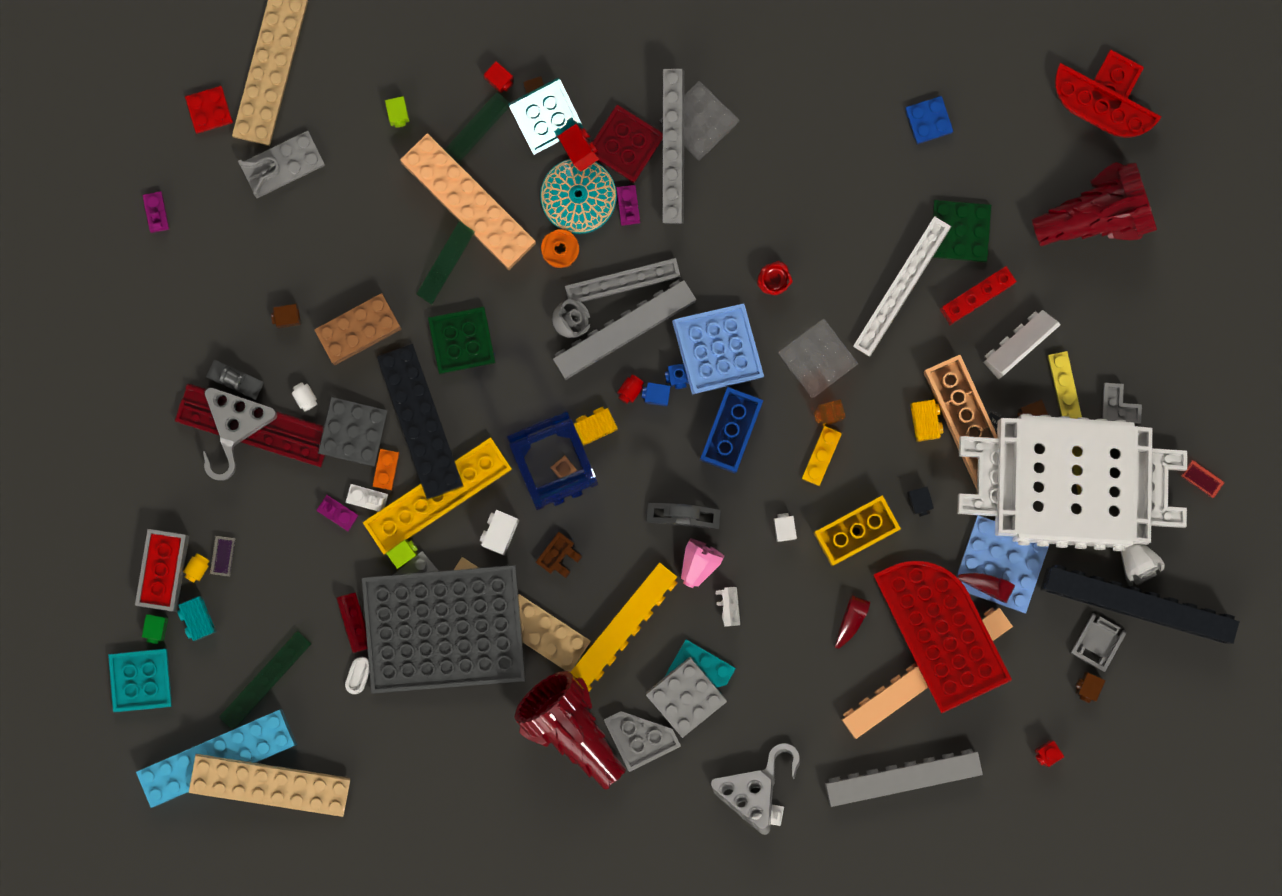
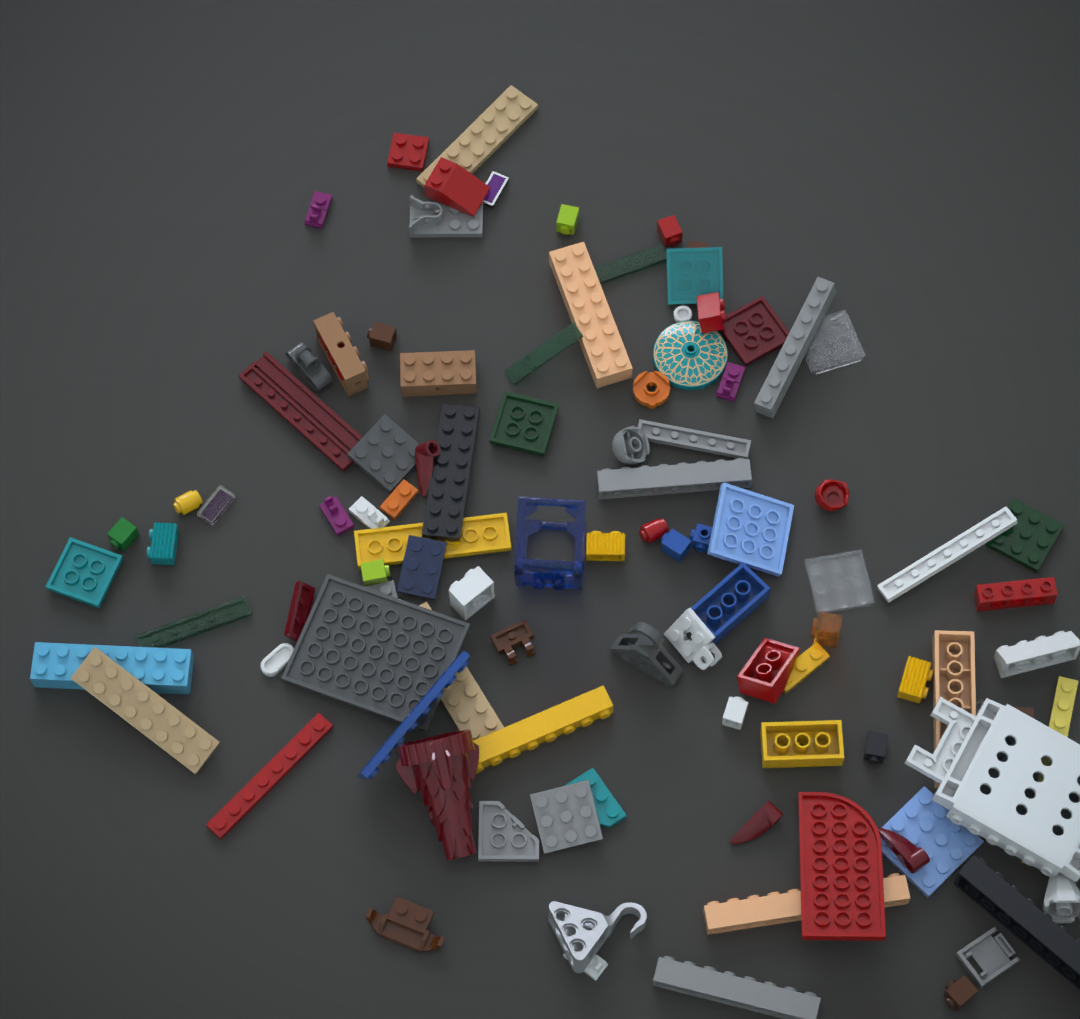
camera: 30 degrees right, 20 degrees down
(162, 570) = (156, 488): red brick -> none
(229, 438) = (298, 405): light grey piece -> none
(269, 362) = (341, 353): none -> medium nougat brick
(278, 131) = (455, 187): none -> red slope
(304, 396) = (361, 407): white brick -> none
(310, 111) = (497, 185): none -> tile
(389, 419) = (424, 457): none -> dark red piece
(408, 785) = (269, 776): none -> red plate
(442, 527) = (421, 567): none -> dark blue plate
(511, 676) = (410, 722): none -> blue plate
(551, 157) = (682, 313): none -> white tile
(597, 859) = (406, 926): none -> reddish brown plate
(699, 562) = (639, 704): bright pink cone -> none
(724, 481) = (700, 645): none -> white plate
(730, 606) = (649, 757): white plate -> none
(796, 475) = (768, 670): none -> red slope
(929, 120) = (1040, 431): blue plate -> none

